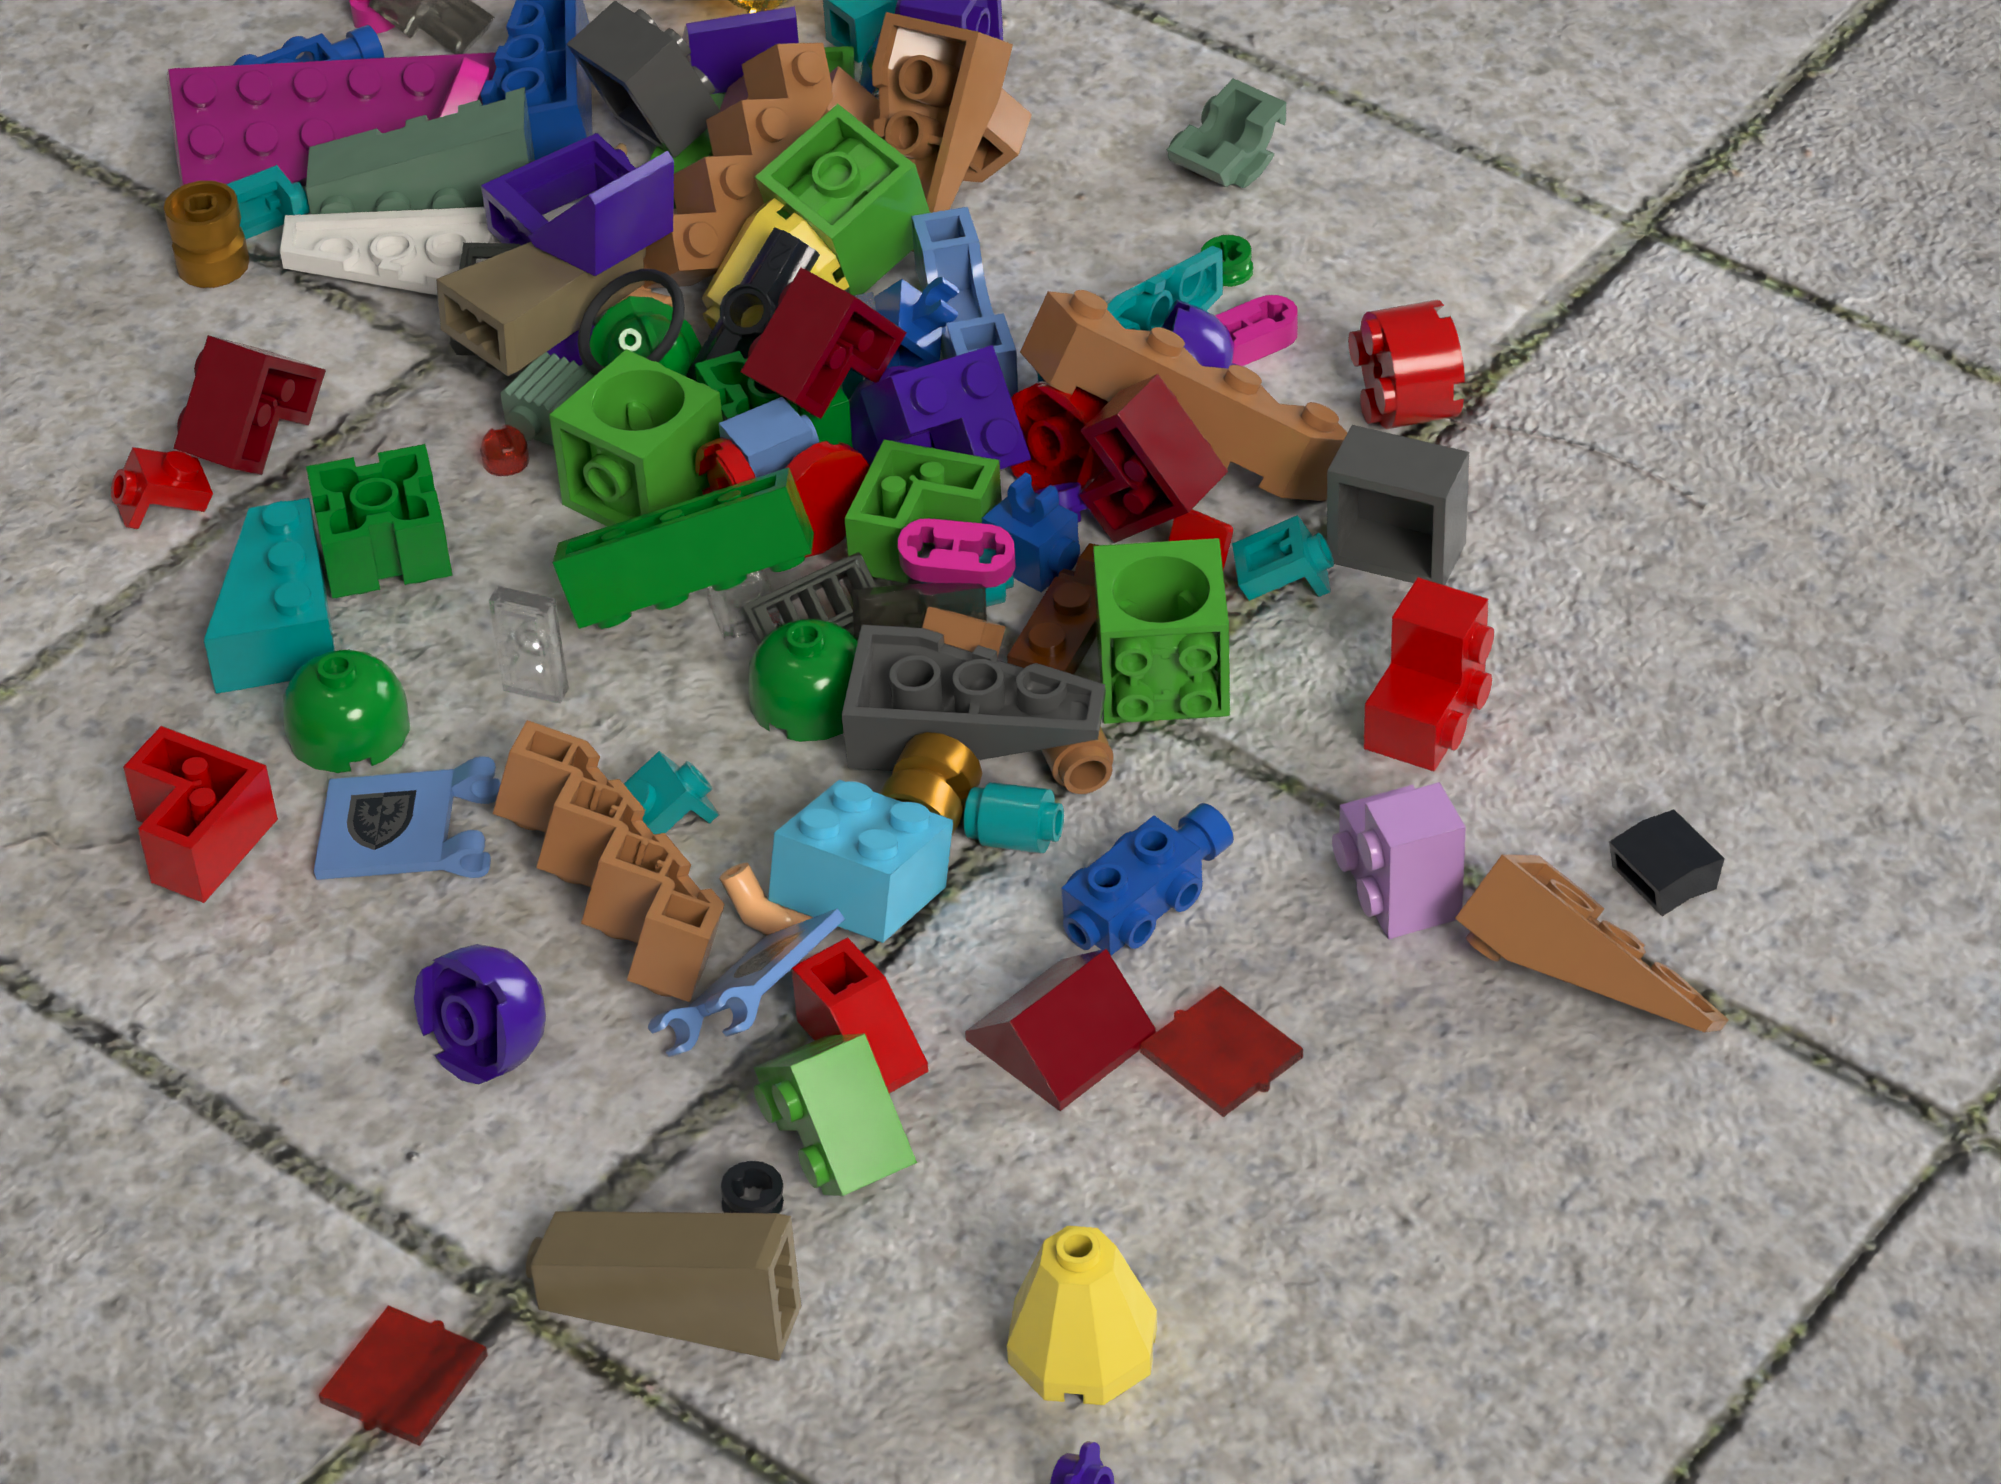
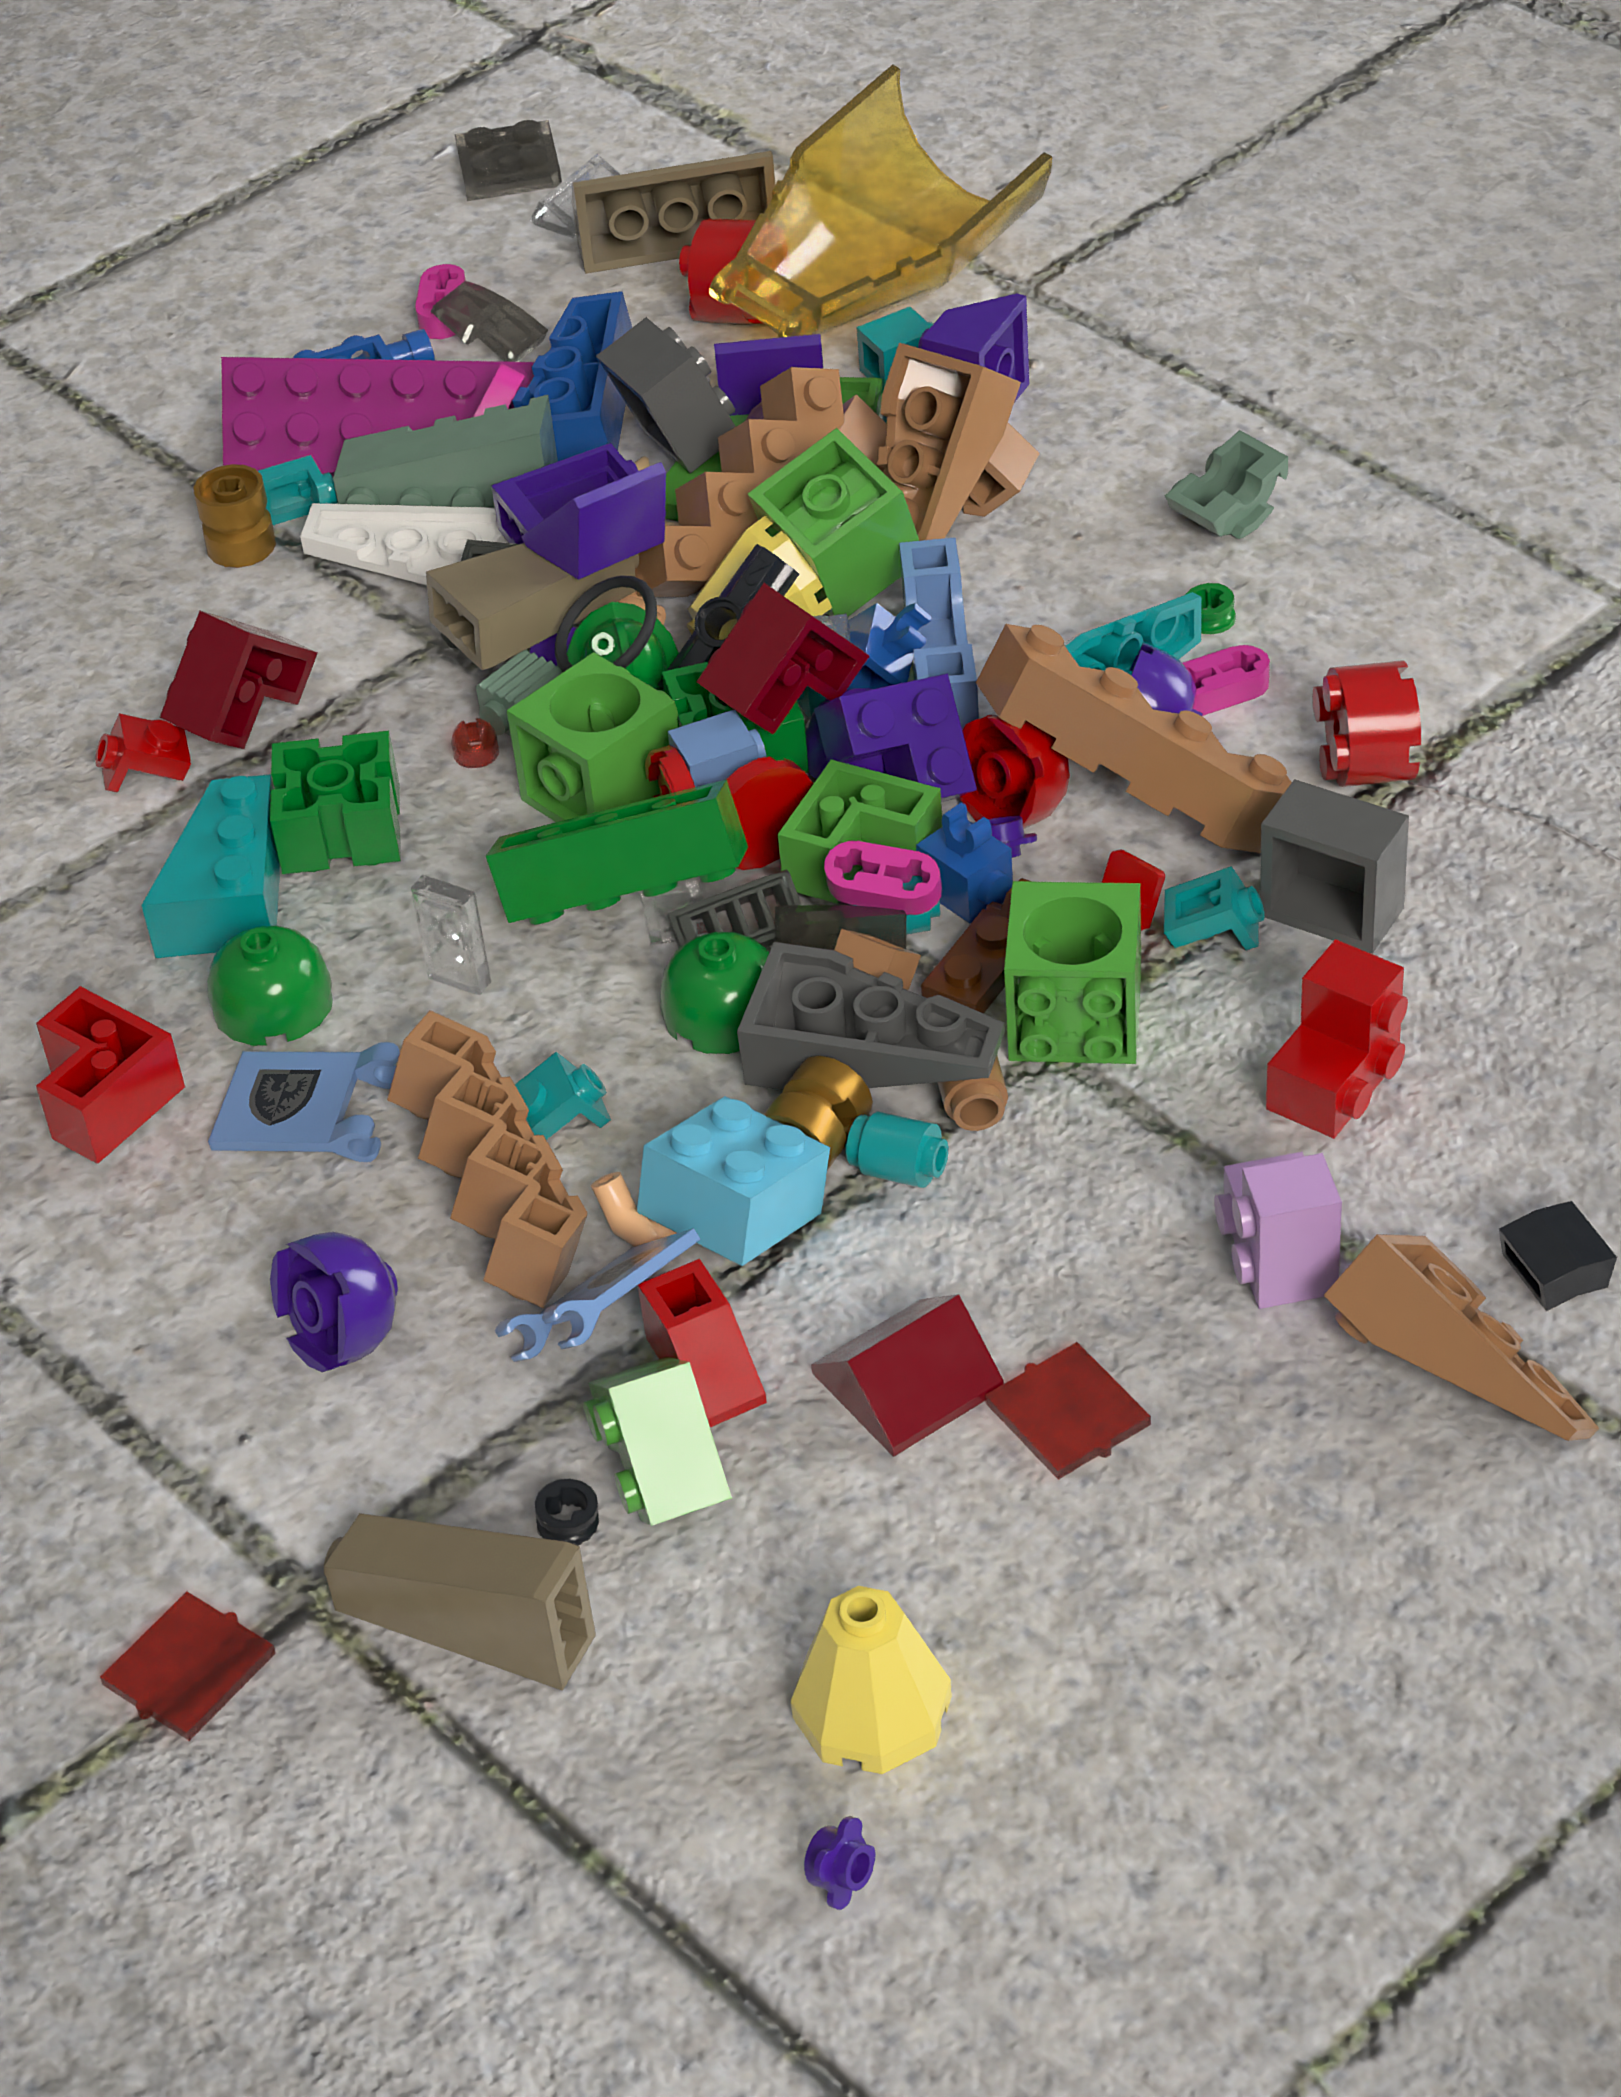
camera: 10 degrees right, 0 degrees up
(1142, 879) = (1014, 1224): blue brick -> none
(1152, 459) = (1090, 796): dark red brick -> none

